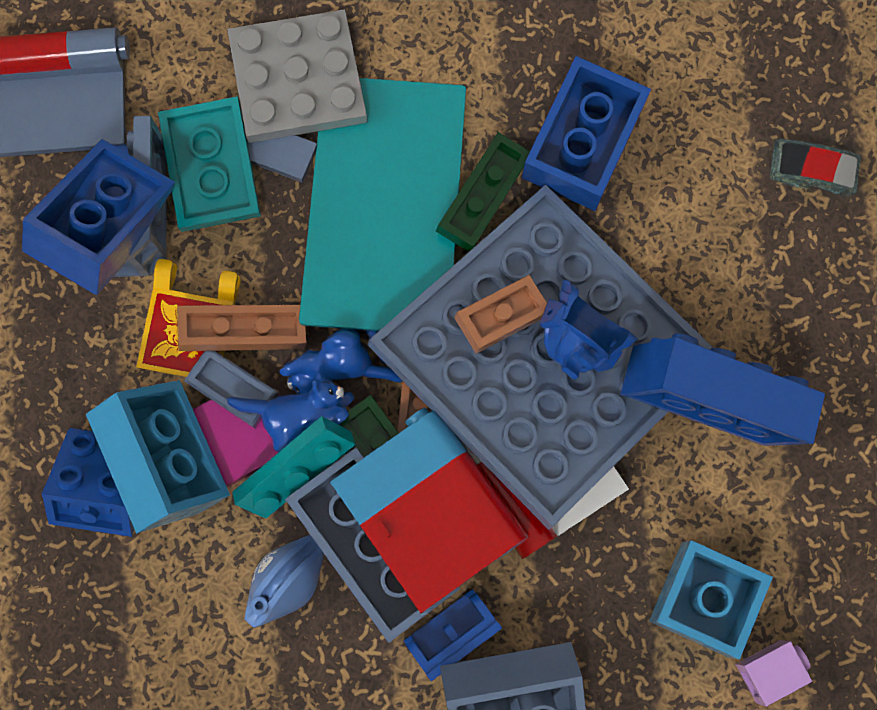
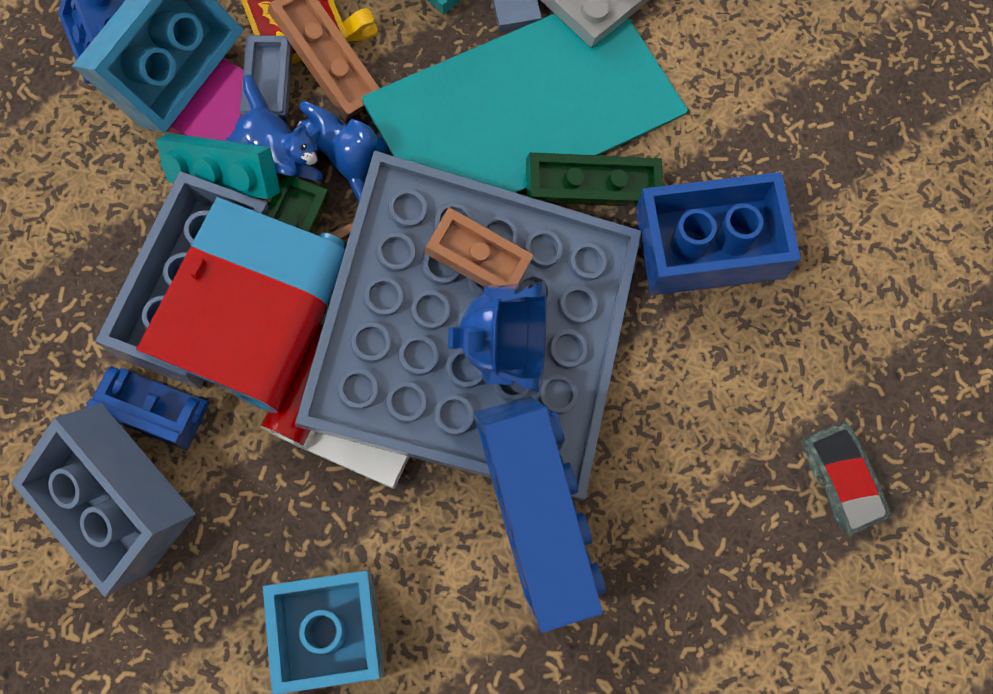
camera: 55 degrees right, 5 degrees down
(284, 581) = (109, 228): medium blue hat -> none

